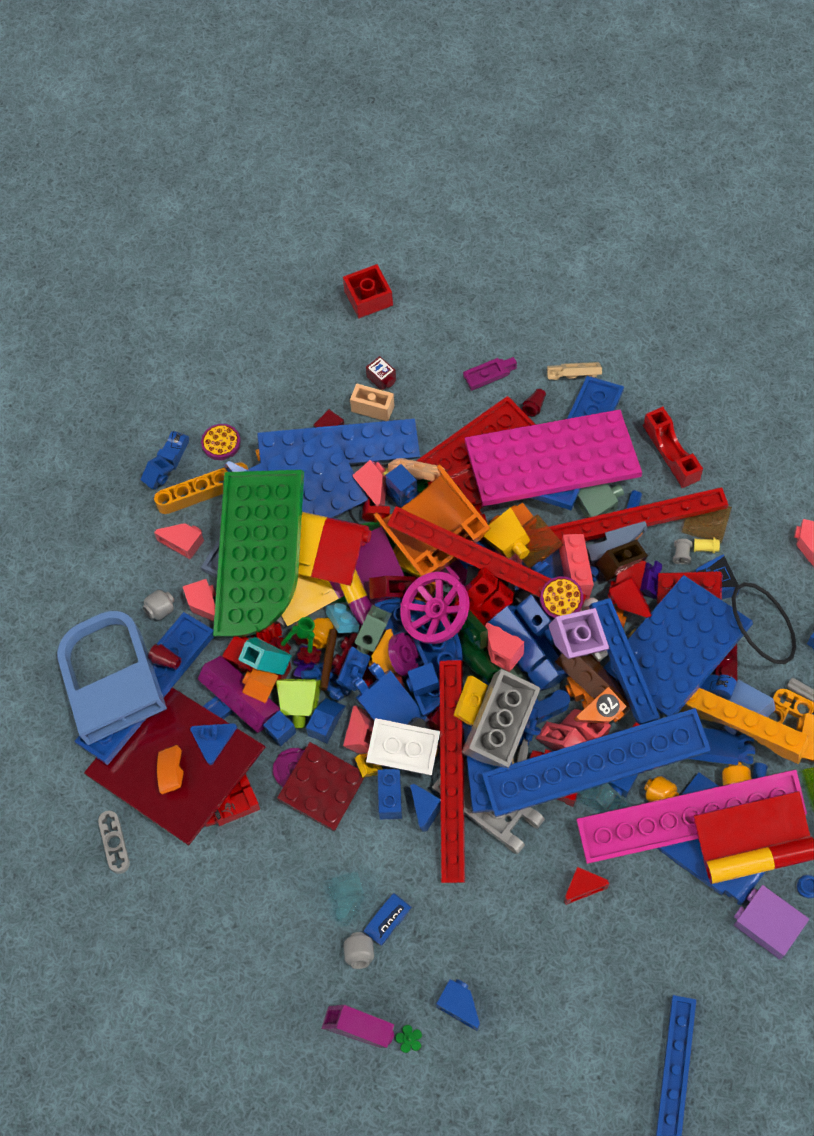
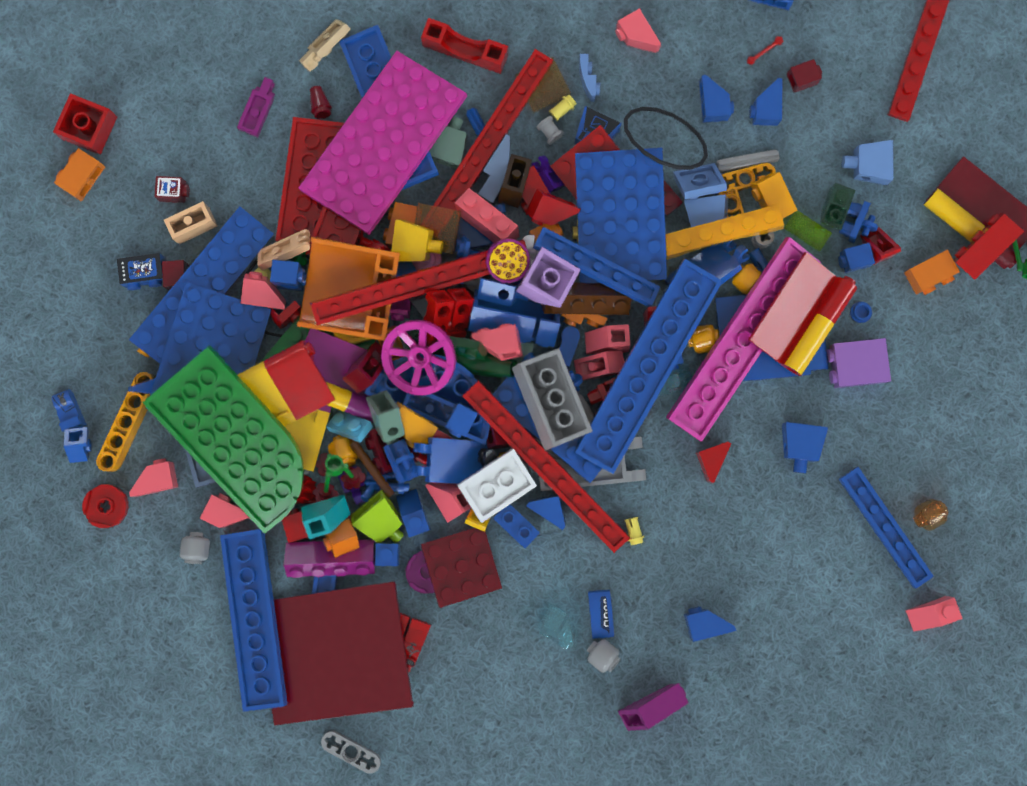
camera: 50 degrees left, 20 degrees up
(118, 698) = (243, 654): medium blue window -> none
(132, 538) = (114, 515): none -> red plate
(163, 656) = (244, 587): dark red cone -> none
(168, 769) = (341, 668): orange slope -> none
(212, 739) = (348, 612): blue piece -> none
(221, 441) = (99, 368): tile -> none
(309, 404) = (141, 271): none -> brick
(333, 317) = (79, 174): none -> orange brick
(402, 653) = (427, 415): magenta tile -> none
(409, 1039) = (693, 679): green plant -> none
(470, 700) = (514, 404): yellow plate -> none
(472, 882) = (634, 531): none -> light yellow pin
(602, 709) = (614, 320): orange slope -> none
(667, 940) = (802, 444): none -> blue torso
(720, 685) = (677, 218): blue leg -> none
(723, 1095) = (930, 514): none -> clear orange head
(742, 547) = (588, 80): none -> medium blue slope
(763, 677) = (700, 181): none -> medium blue plate
(774, 766) = (769, 237): none -> light grey bush

